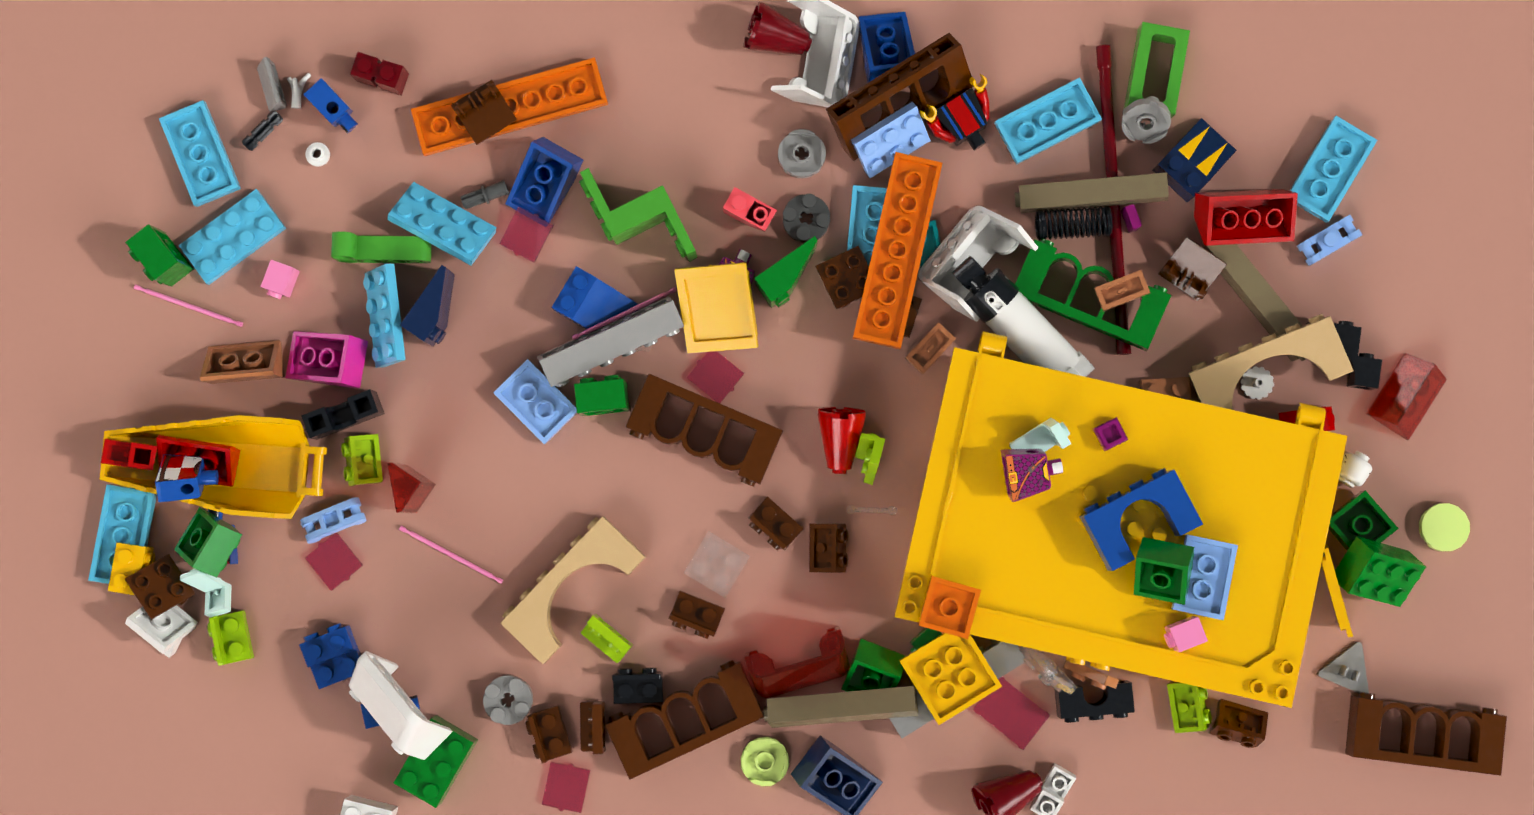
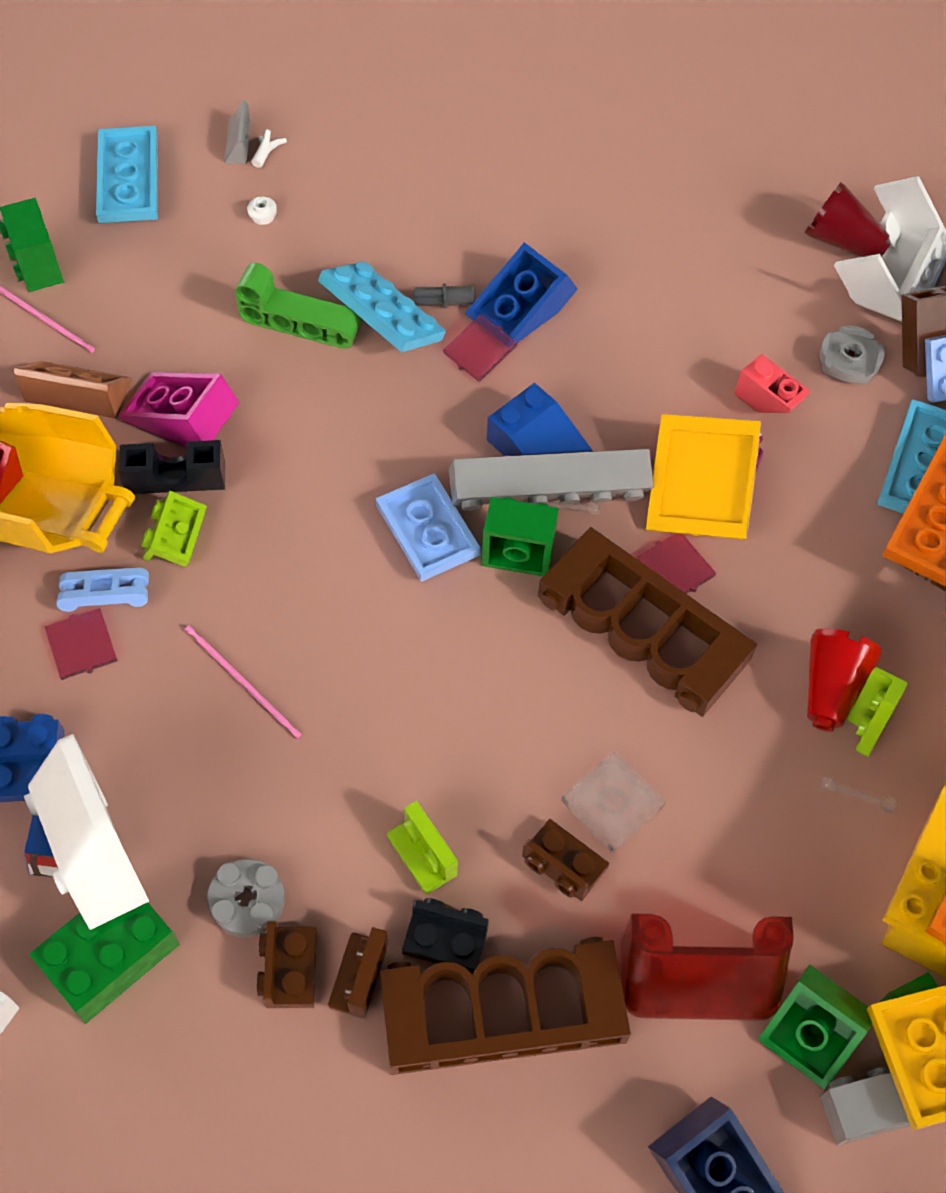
camera: 10 degrees right, 25 degrees down
(232, 237) = (125, 261): medium azure plate -> none
(262, 130) = (208, 173): black axle -> none
(279, 279) = (161, 311): bright pink brick -> none
(325, 99) = (299, 169): blue torso -> none
(384, 316) = (271, 376): medium azure plate -> none
(388, 75) = (377, 152): dark red piece -> none
(408, 488) = (223, 563): clear red slope -> none
(431, 311) = (332, 381): dark blue slope -> none
(484, 112) = (474, 209): reddish brown hinge -> none
(530, 98) = (505, 220): orange plate -> none
(531, 617) = (450, 724): tan arch -> none
(566, 787) = (284, 1059): clear pink piece -> none
(638, 215) = (630, 353): bright green bracket -> none
(764, 761) = (610, 1116): yellowish green tile -> none
(775, 524) = (713, 771): reddish brown bracket -> none
(781, 278) = (803, 462): green slope -> none
(810, 205) = (847, 409): dark grey plate -> none
(828, 548) = (784, 822): reddish brown bracket -> none
(841, 707) = (761, 1055): dark tan brick -> none
(844, 276) = (880, 493): reddish brown hinge -> none

